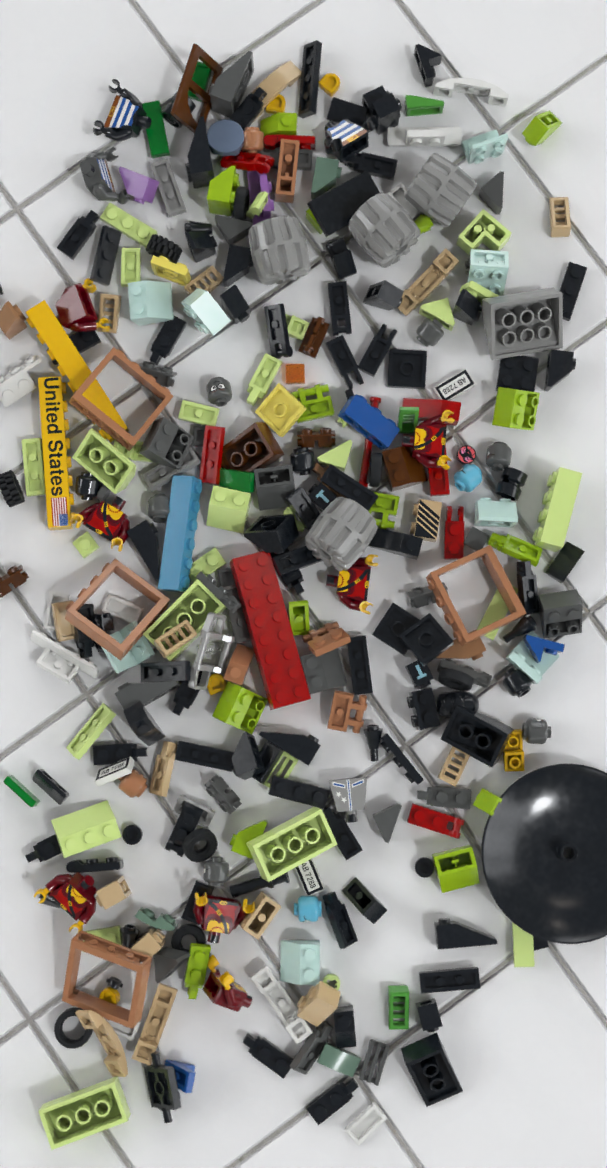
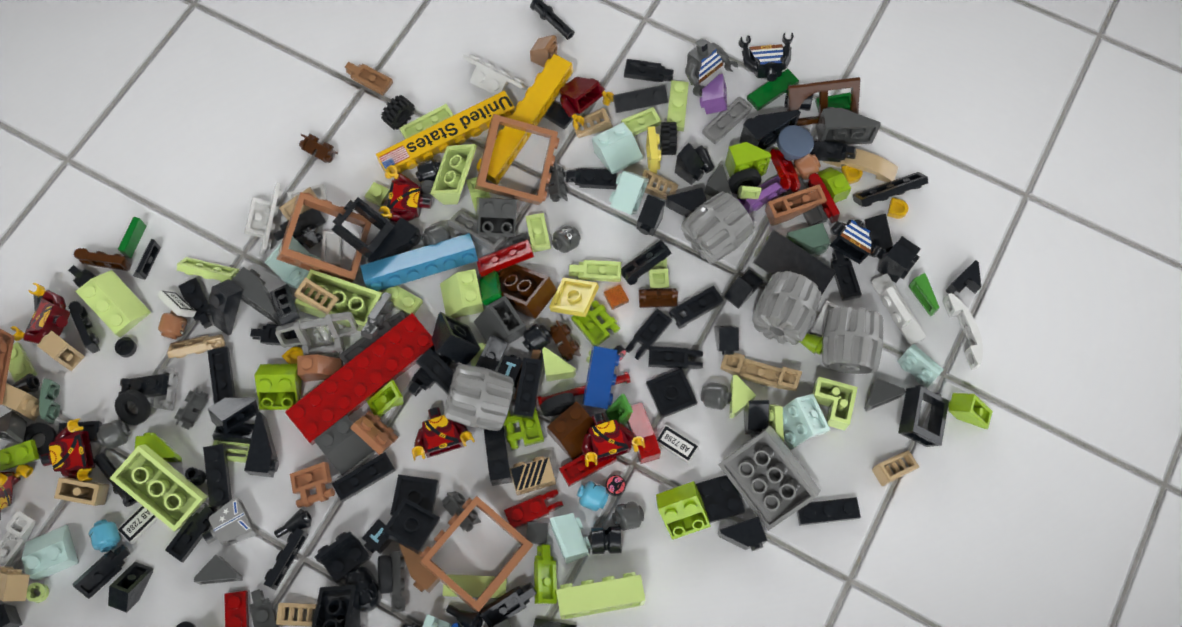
camera: 60 degrees right, 15 degrees down
(30, 828) = (102, 259): none -> reddish brown hinge
(137, 557) = (372, 216): none -> black window
(291, 805) = (195, 476): none -> black pin
(524, 175) = (910, 416): none -> black window

